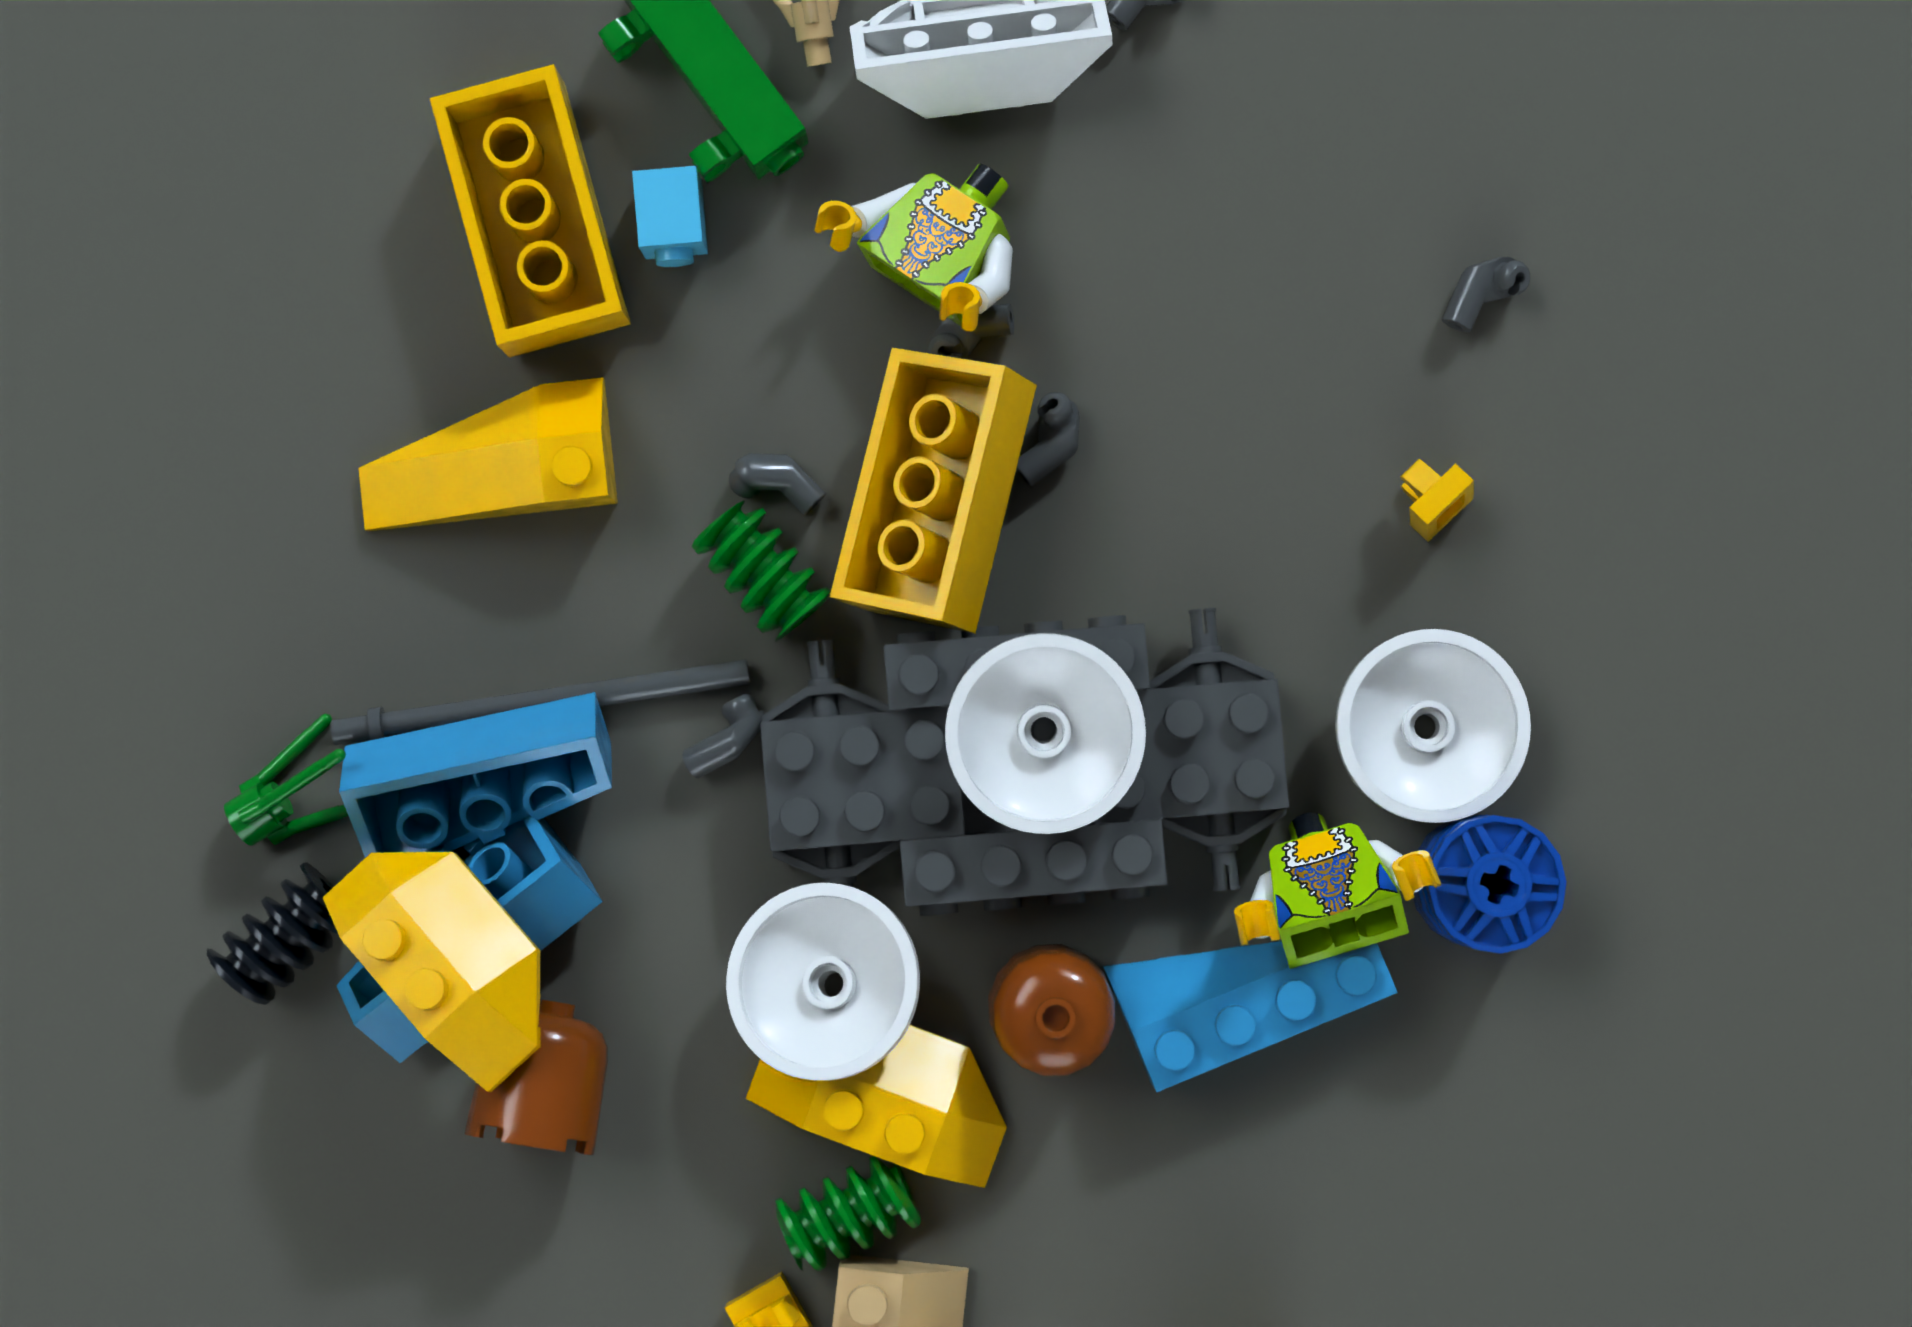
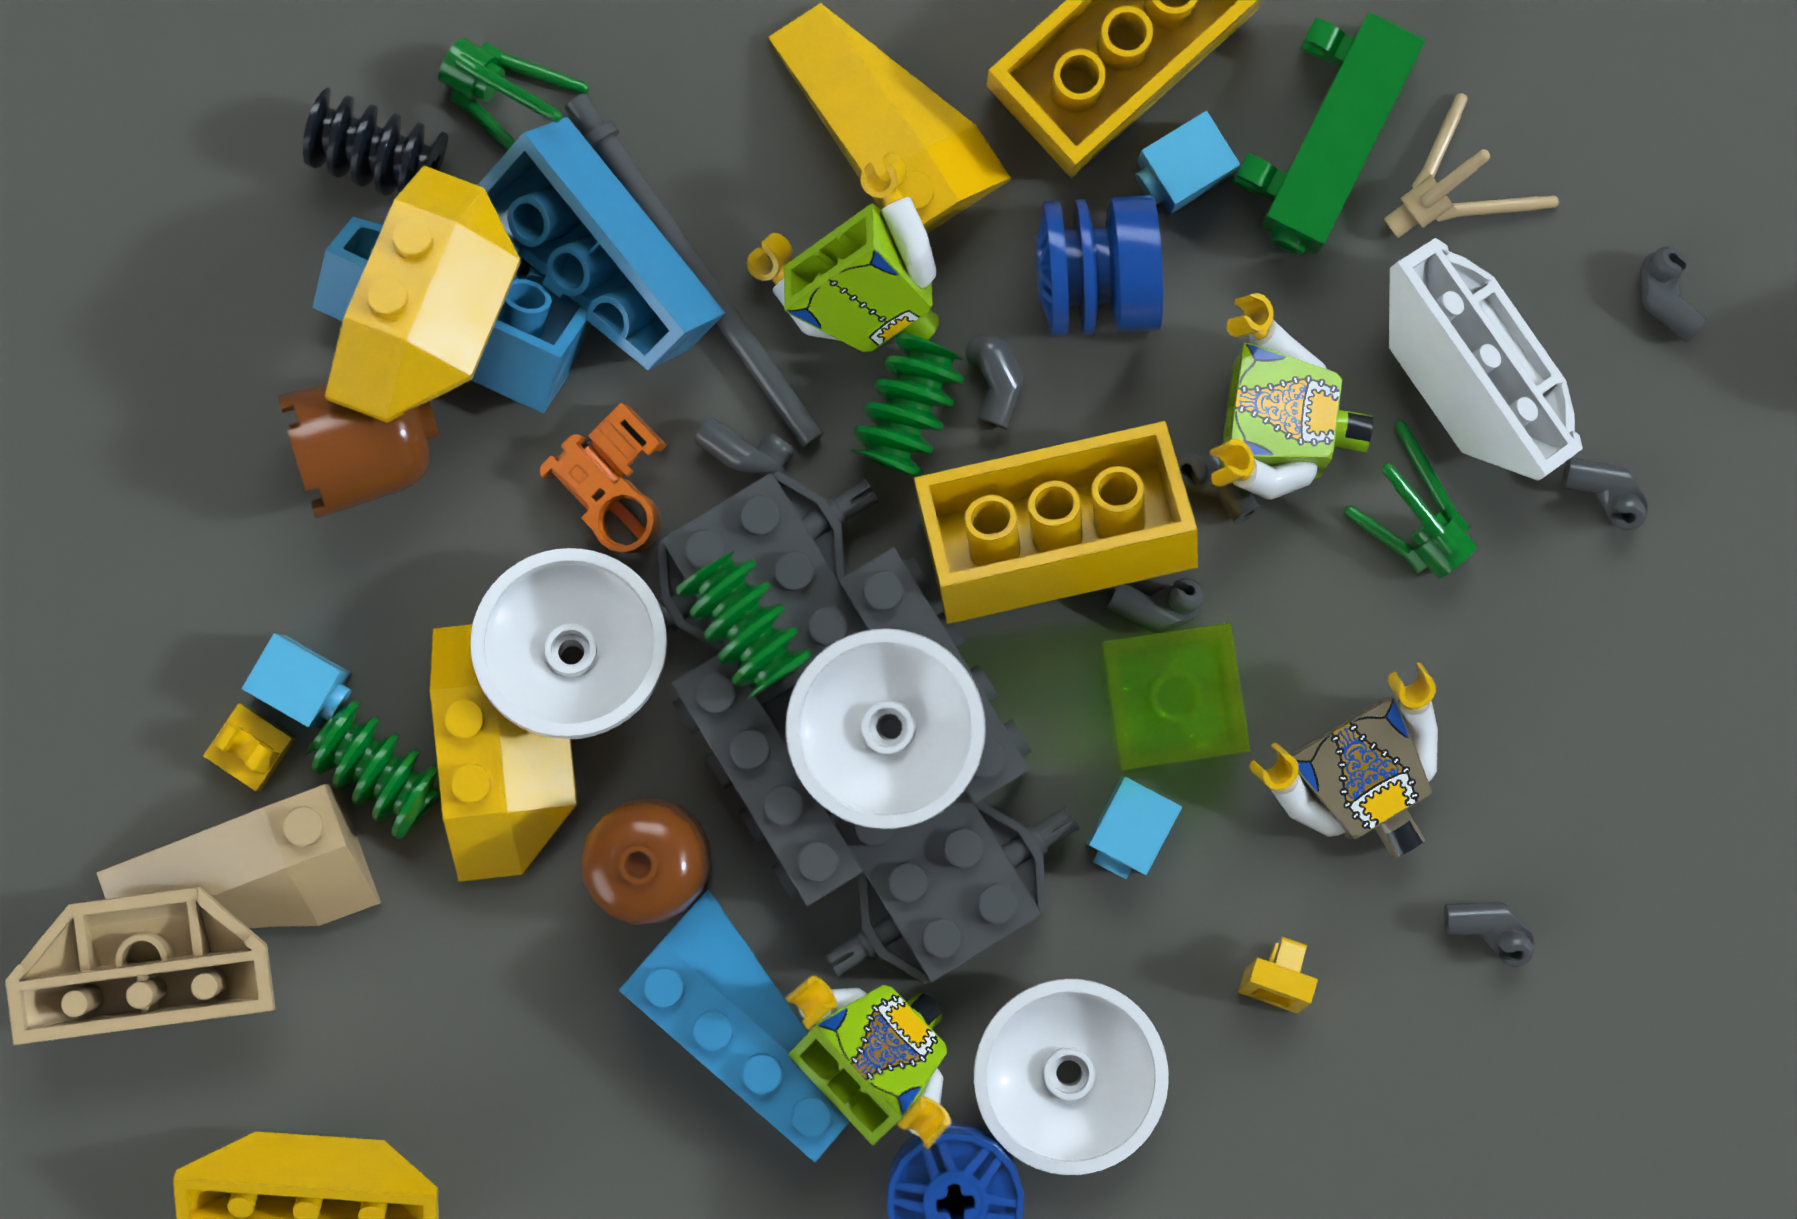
camera: 65 degrees right, 0 degrees up
(625, 553) = (863, 276): none -> lime torso
(677, 874) = (602, 468): none -> orange piece
(724, 334) = (1101, 265): none -> blue wheel
(733, 1244) = (298, 682): none -> medium azure brick
(885, 813) = (743, 623): none -> green piece
(1115, 157) = (1440, 537): none -> green plant
(1142, 465) = (1173, 696): none -> clear neon green brick
(1238, 561) = (1132, 828): none -> medium azure brick
(1289, 328) = (1364, 769): none -> torso

